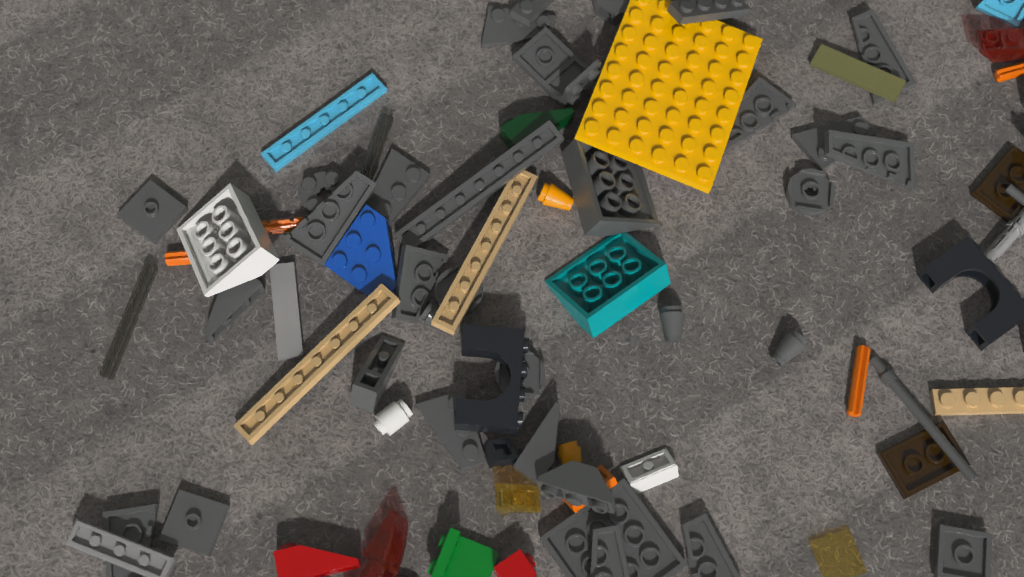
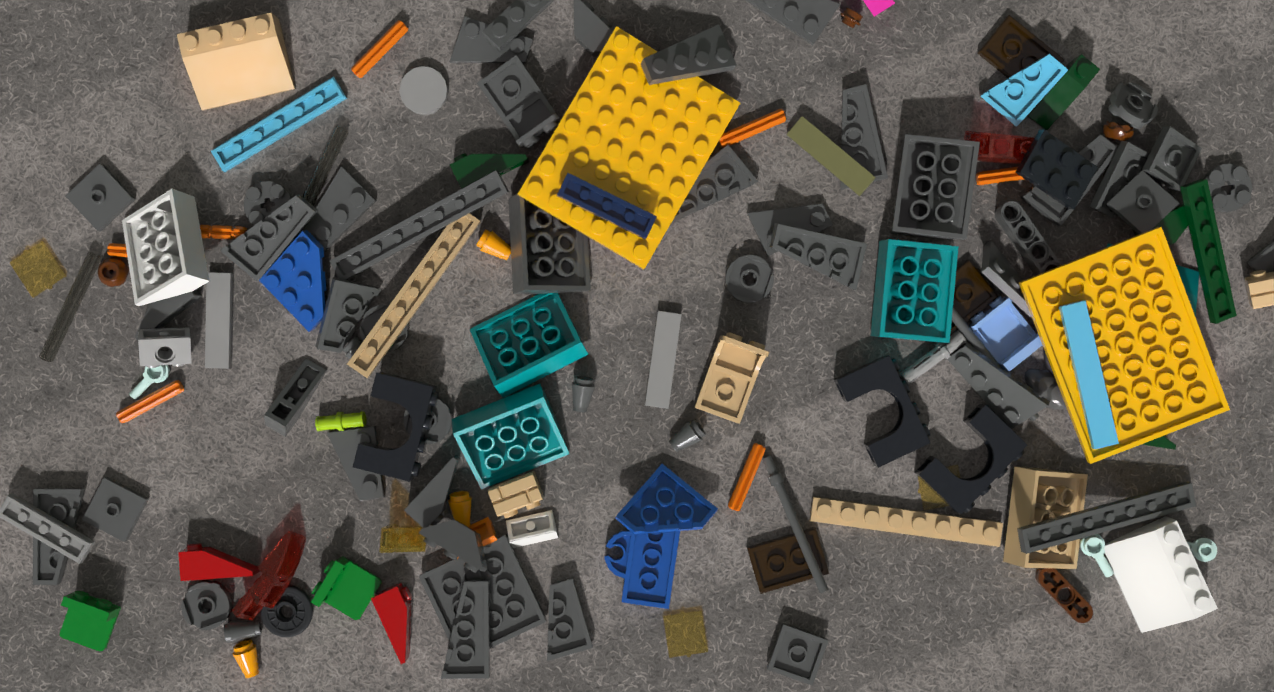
camera: 10 degrees right, 20 degrees up
(91, 290) = (37, 269): none -> clear yellow piece
(174, 286) = (120, 271): none -> reddish brown plate
(222, 332) = (153, 339): none -> light grey brick
(222, 402) = (150, 401): none -> orange axle
(225, 370) = (151, 375): none -> light aqua plate
(278, 70) = (236, 61): none -> tan slope
(316, 364) = (239, 381): tan plate -> none
(392, 417) = (303, 443): white brick -> none
(412, 44) = (379, 49): none -> orange axle
(428, 389) = (340, 421): none -> lime pin
(460, 73) = (423, 90): none -> light grey tile
(500, 452) = (395, 494): black tile -> none
(609, 377) = (509, 436): none -> teal slope
(626, 434) = (516, 494): none -> tan brick
(664, 132) = (606, 206): none -> dark blue plate
(745, 281) = (663, 359): none -> light grey tile
(778, 61) = (752, 128): none -> orange axle
(778, 478) = (646, 566): none -> blue plate
(787, 417) = (665, 505): none -> blue plate
(819, 279) = (731, 377): none -> tan bracket
(962, 82) = (935, 187): none -> dark grey slope
(971, 176) = (914, 291): none -> teal slope

